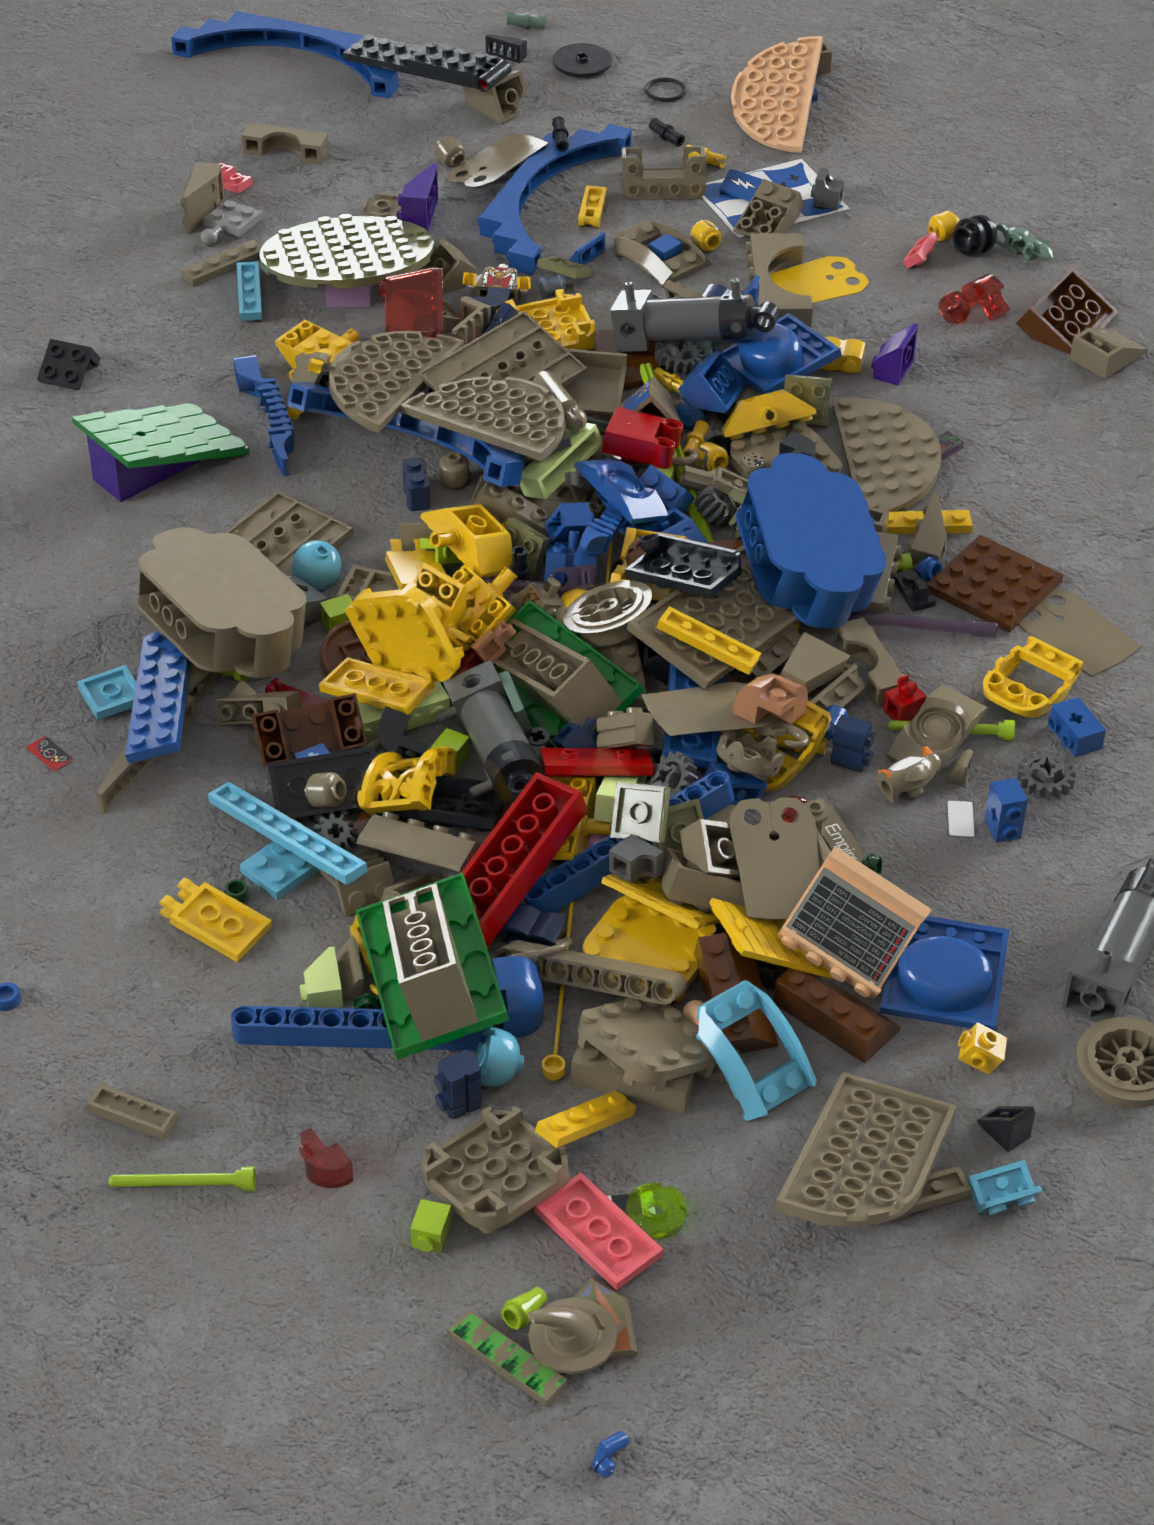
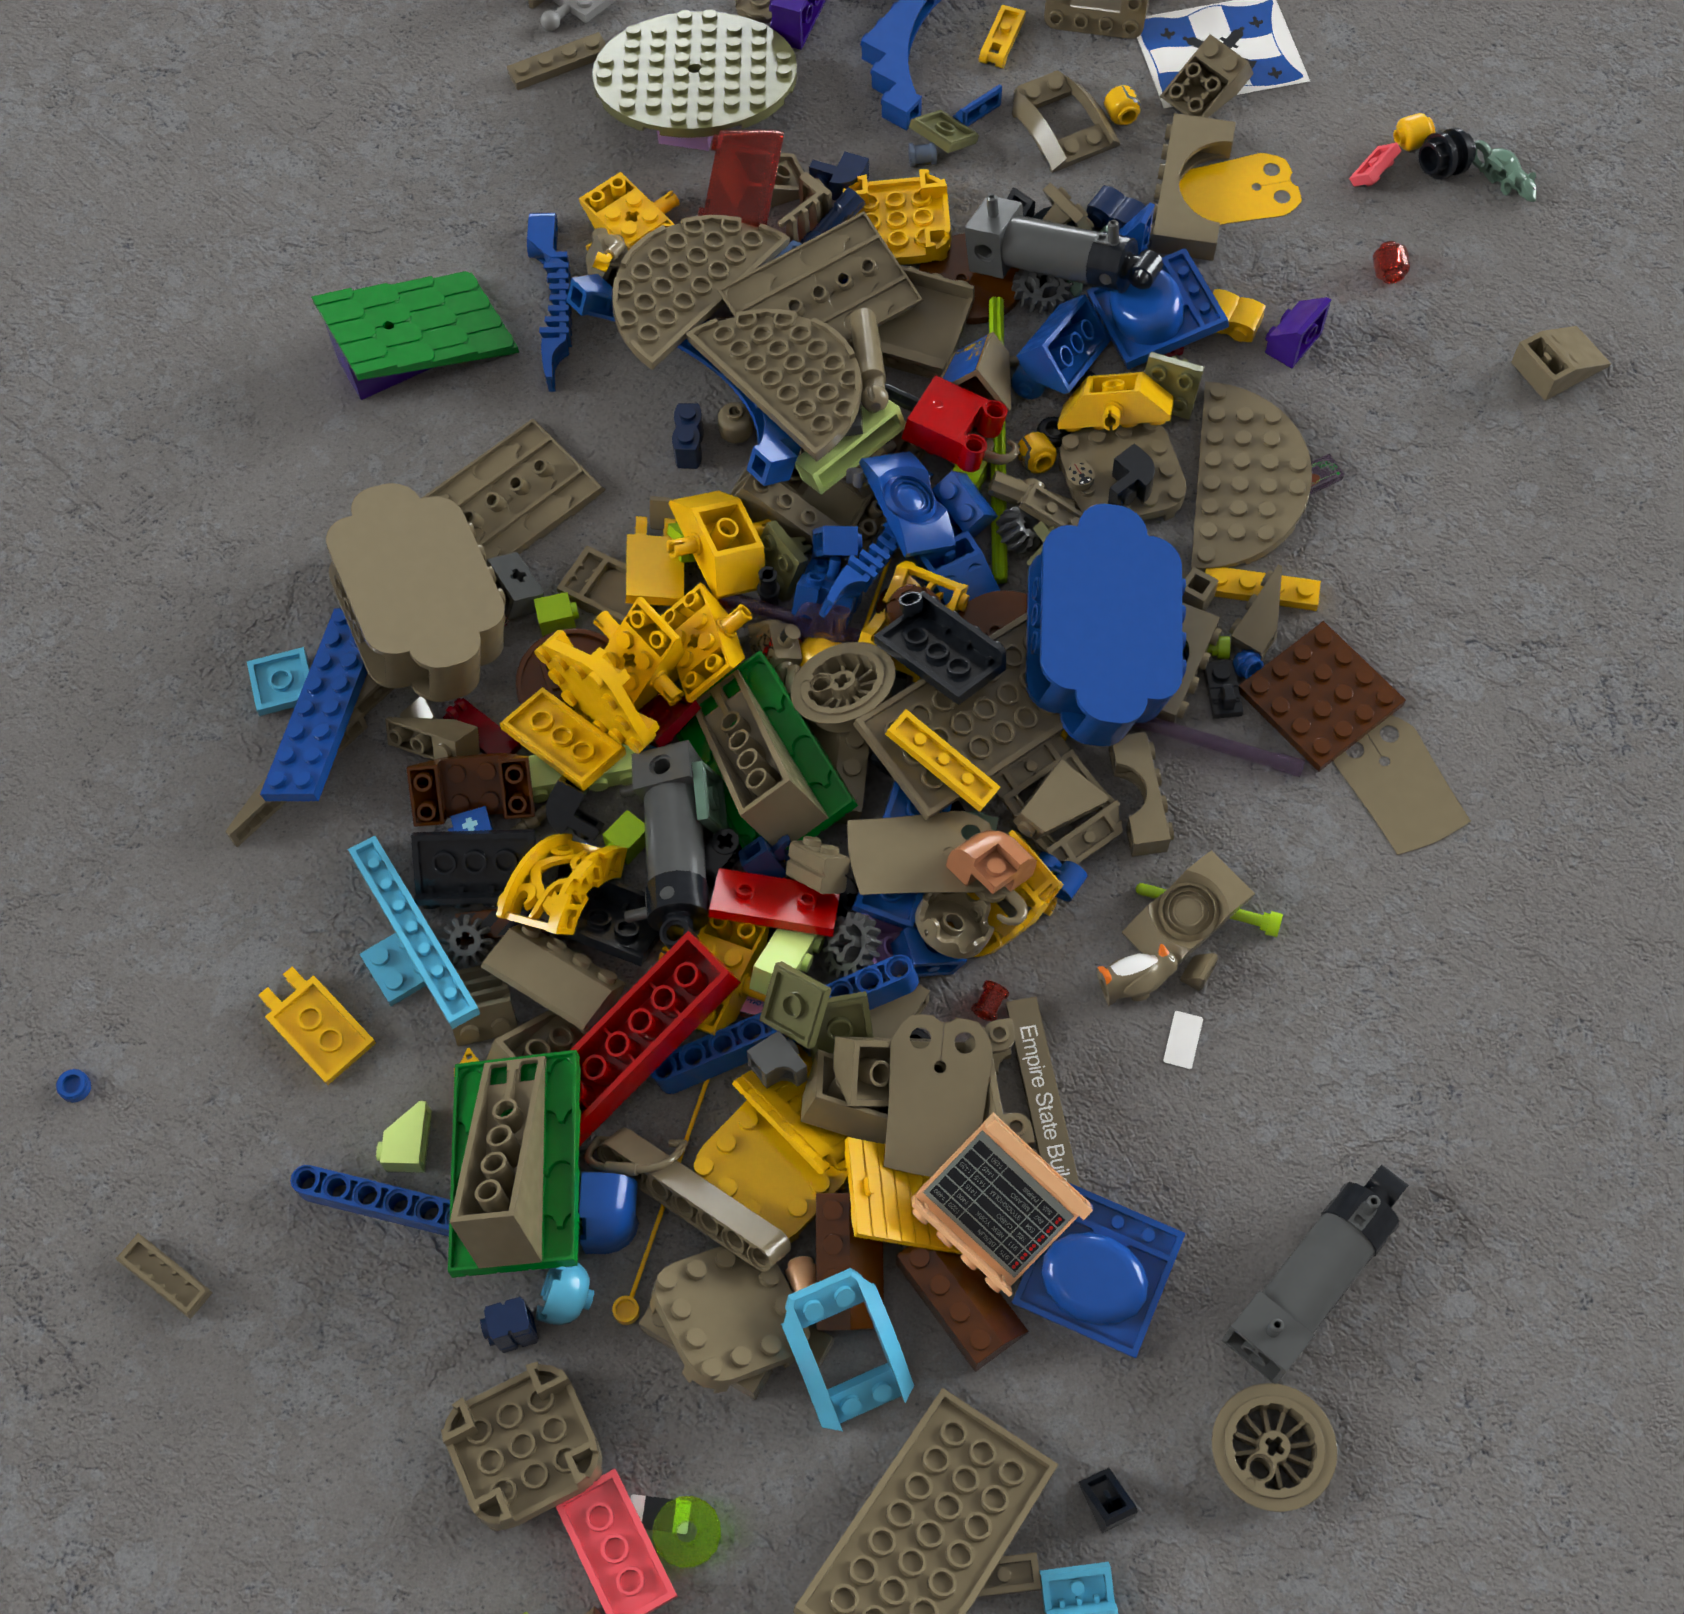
camera: 15 degrees right, 20 degrees up
(49, 753) = (199, 751): sticker -> none
(66, 364) = (345, 191): black bracket -> none
(238, 890) = (344, 985): dark green plate -> none
(241, 1179) = (257, 1393): lime piece -> none
(249, 291) = (574, 110): medium azure plate -> none
(317, 564) = (546, 539): medium azure cylinder -> none
(325, 790) = (467, 881): dark tan head -> none
(325, 1166) = (348, 1396): clear red brick -> none
(350, 970) = (441, 1129): dark tan slope -> none
(367, 1001) = (442, 1181): dark green plate -> none
(430, 1226) = (435, 1506): lime brick -> none
(452, 264) = (807, 112): dark tan slope -> none
(491, 644) = (701, 709): nougat plate -> none
(497, 277) = (859, 139): torso -> none
(534, 926) = (656, 1113): dark blue brick -> none
(585, 1118) = (632, 1404): yellow plate -> none
(666, 247) = (1068, 119): blue brick -> none
(670, 381) = (1014, 316): yellow pin -> none
(696, 437) = (1027, 419): yellow pin -> none
(740, 184) = (1187, 29): blue slope -> none
(827, 190) = (1287, 55): dark grey brick -> none
(852, 743) = (1080, 920): dark blue brick -> none
(873, 862) = (1055, 1102): dark green plate -> none
(904, 701) = (1163, 862): red brick -> none
(982, 1048) = (1108, 1392): yellow brick -> none
(988, 293) = (1436, 247): clear red brick -> none
(1006, 810) = (1232, 1054): blue brick -> none
(1015, 695) = (1297, 876): yellow slope -> none
(1046, 775) = (1311, 999): dark grey gear -> none
(1066, 311) = (1527, 293): reddish brown slope -> none
(1076, 727) = (1357, 920): blue brick -> none

